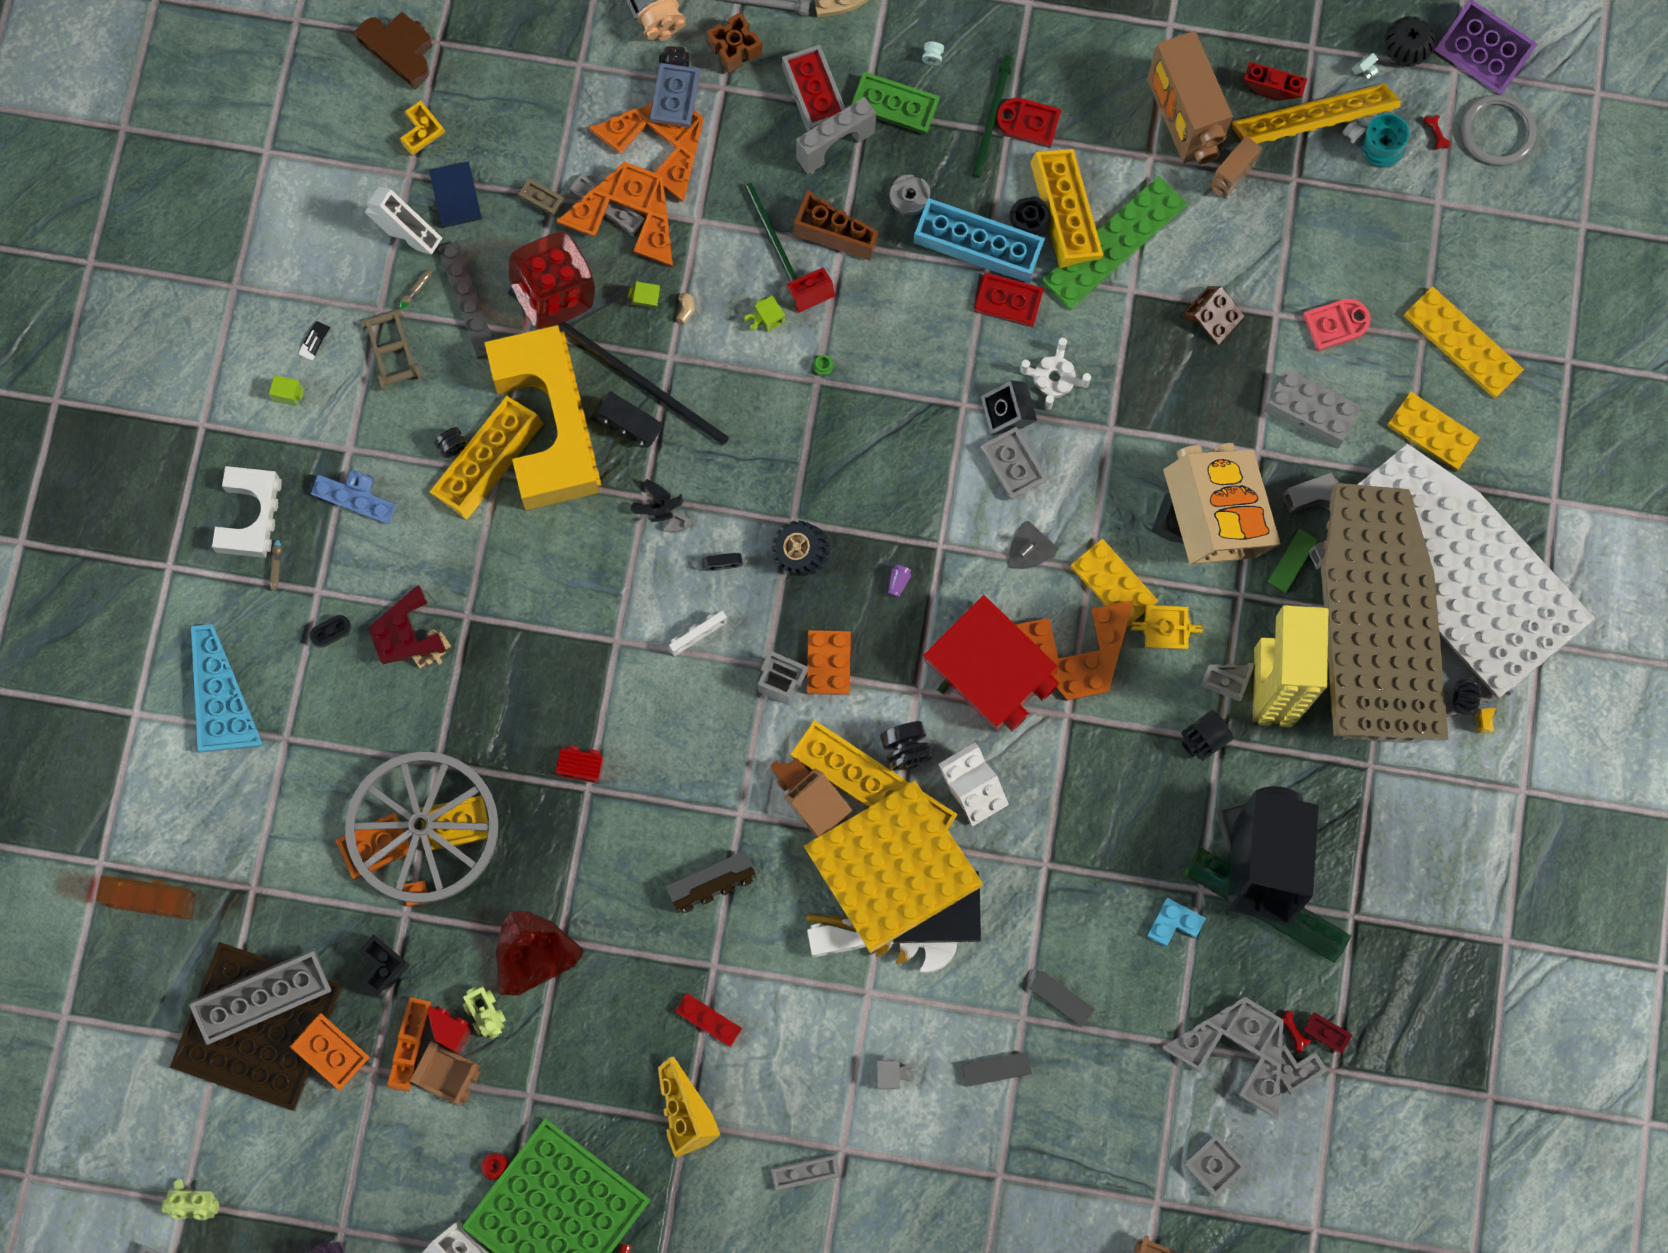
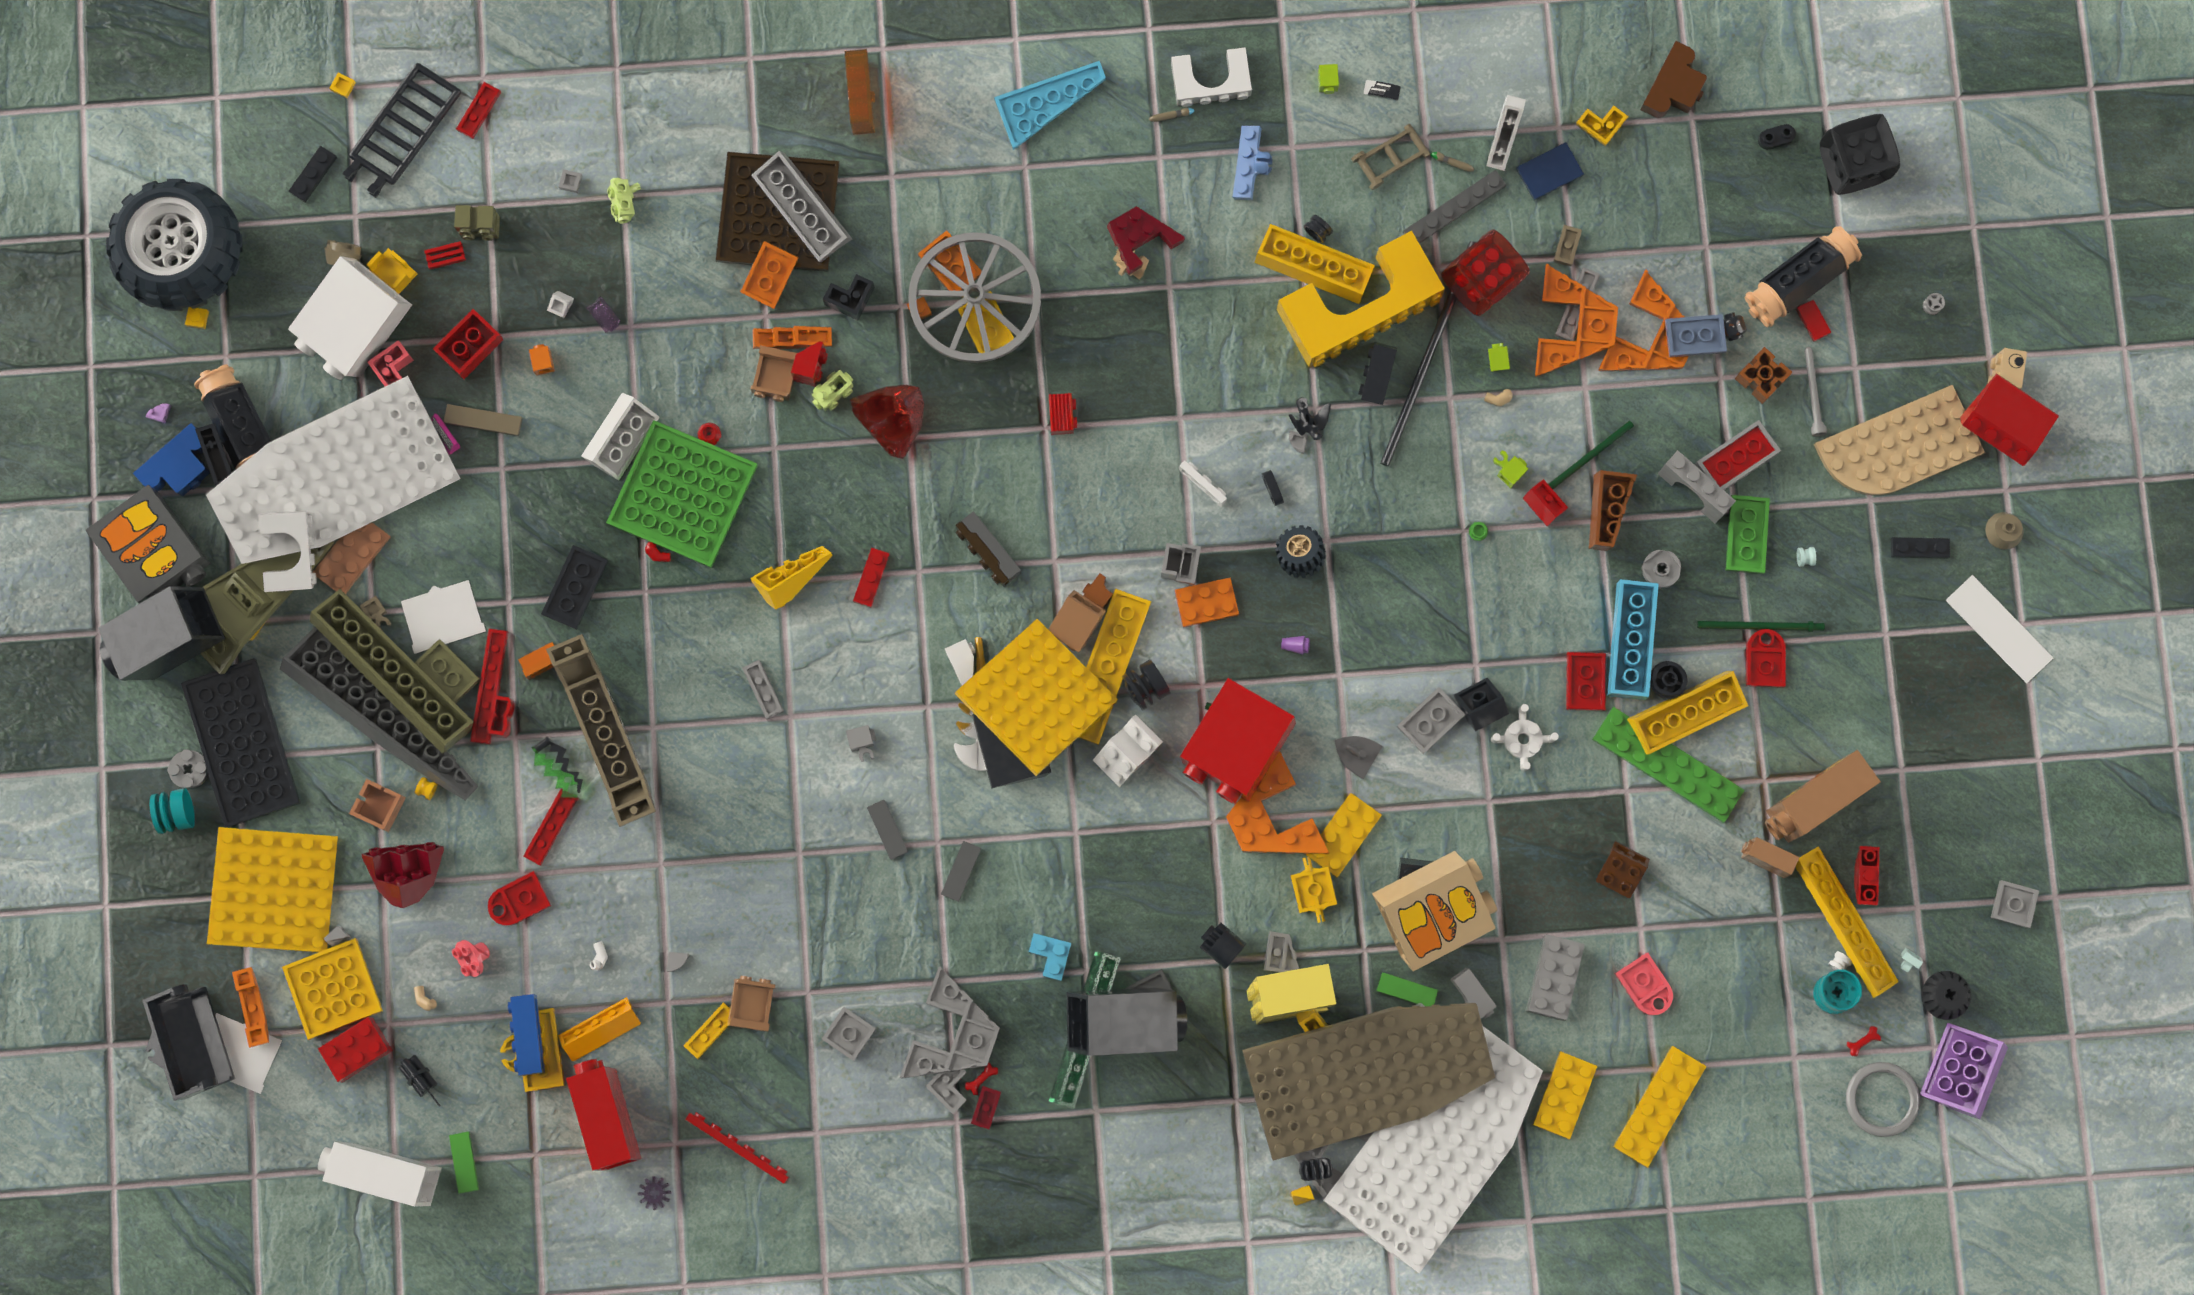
camera: 80 degrees right, 5 degrees up
(329, 629) = (1125, 176): black plate -> none

